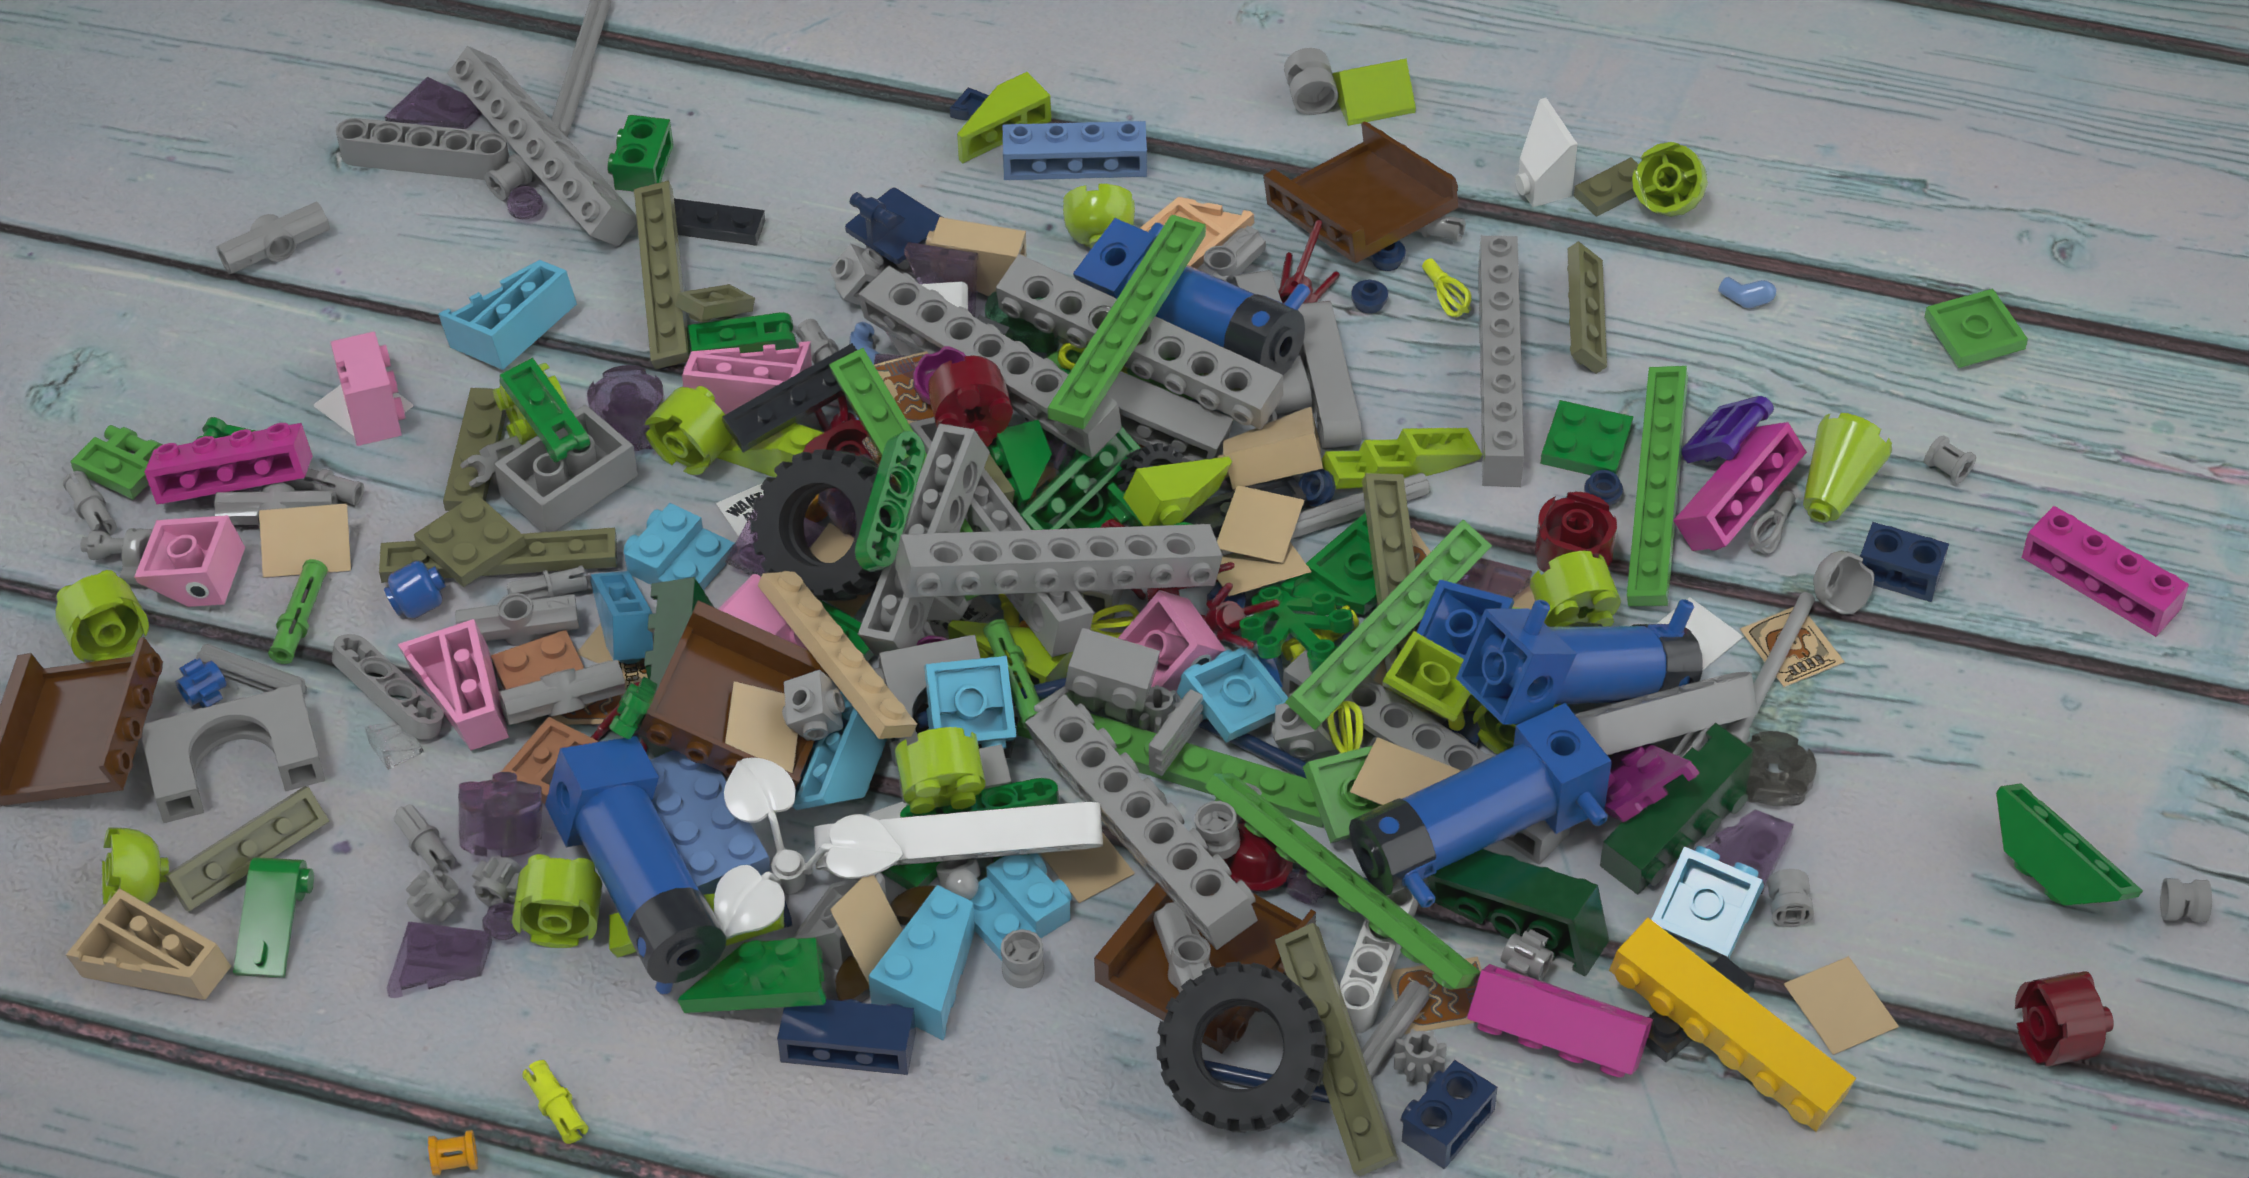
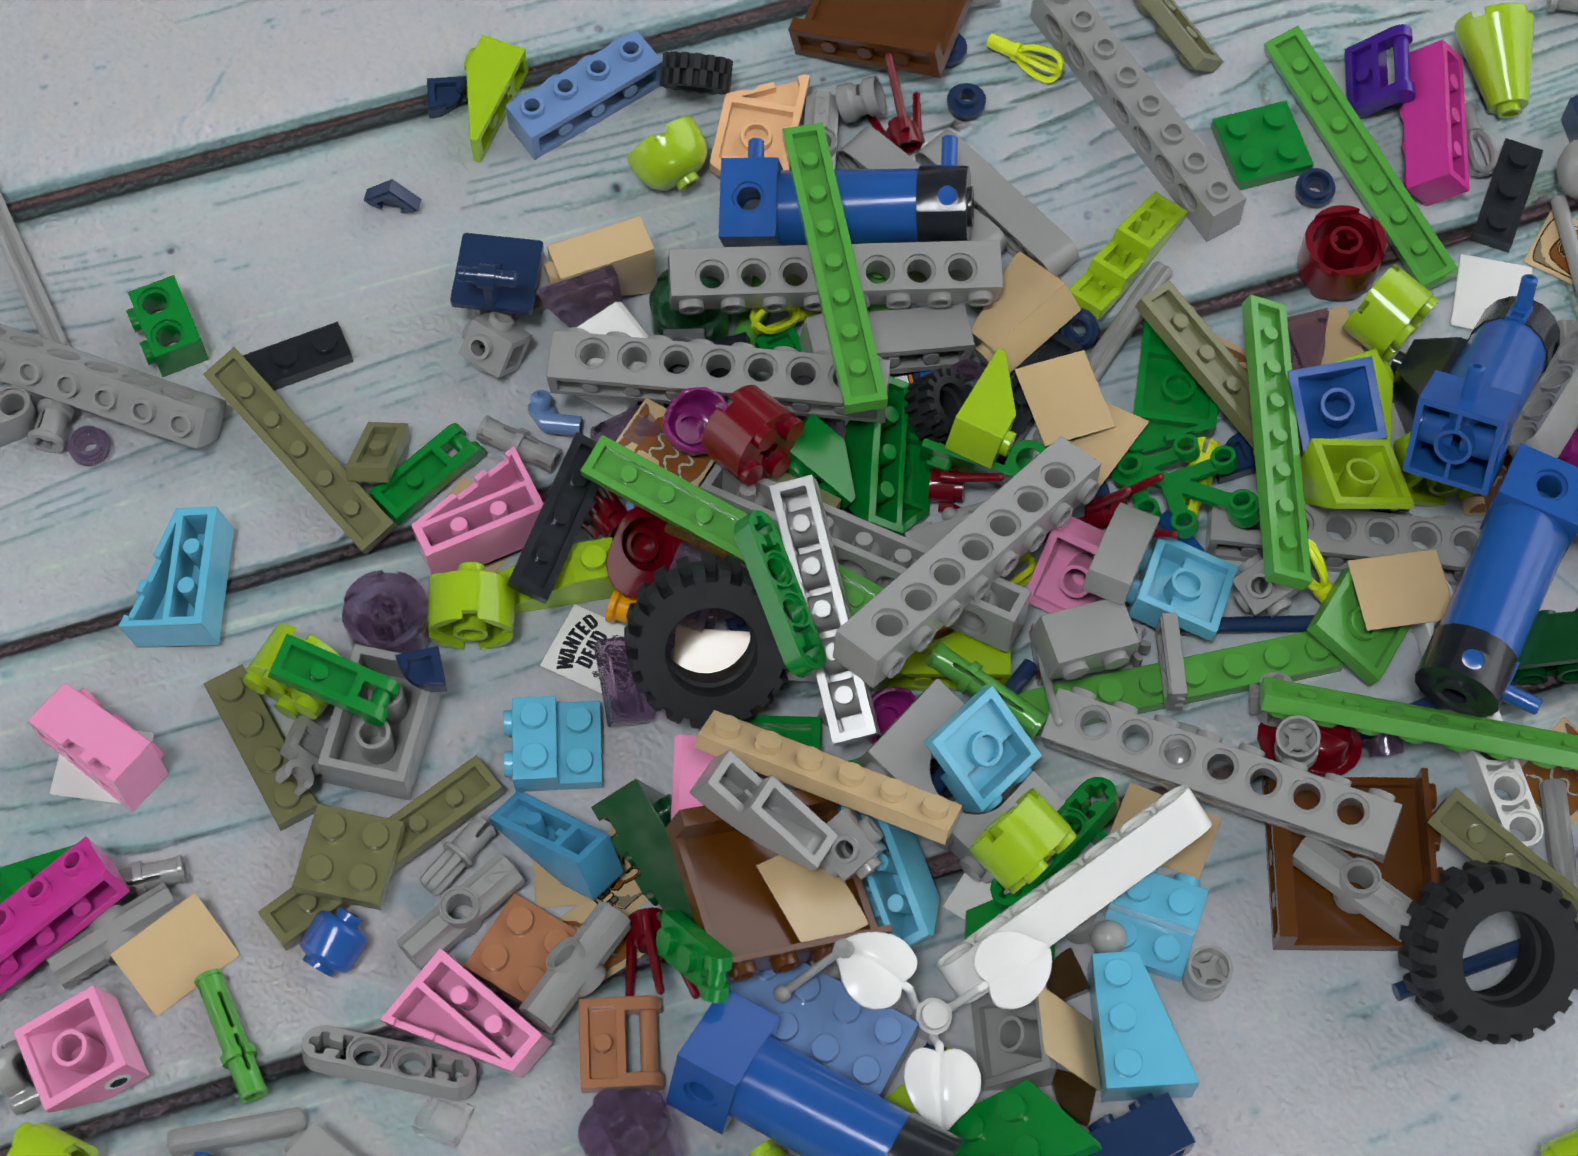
camera: 35 degrees left, 15 degrees up
(617, 441) = (423, 669): none -> dark blue tile
(742, 761) = (842, 948): none -> light grey hinge
(758, 635) = (763, 811): none -> light grey slope
(875, 149) = (393, 195): none -> dark blue tile
(1165, 170) = (696, 73): none -> black tyre
(1187, 625) = (1120, 553): none -> light grey slope
(1279, 249) = (860, 99): none -> light grey wheel
(1765, 574) = (1506, 195): none -> black plate

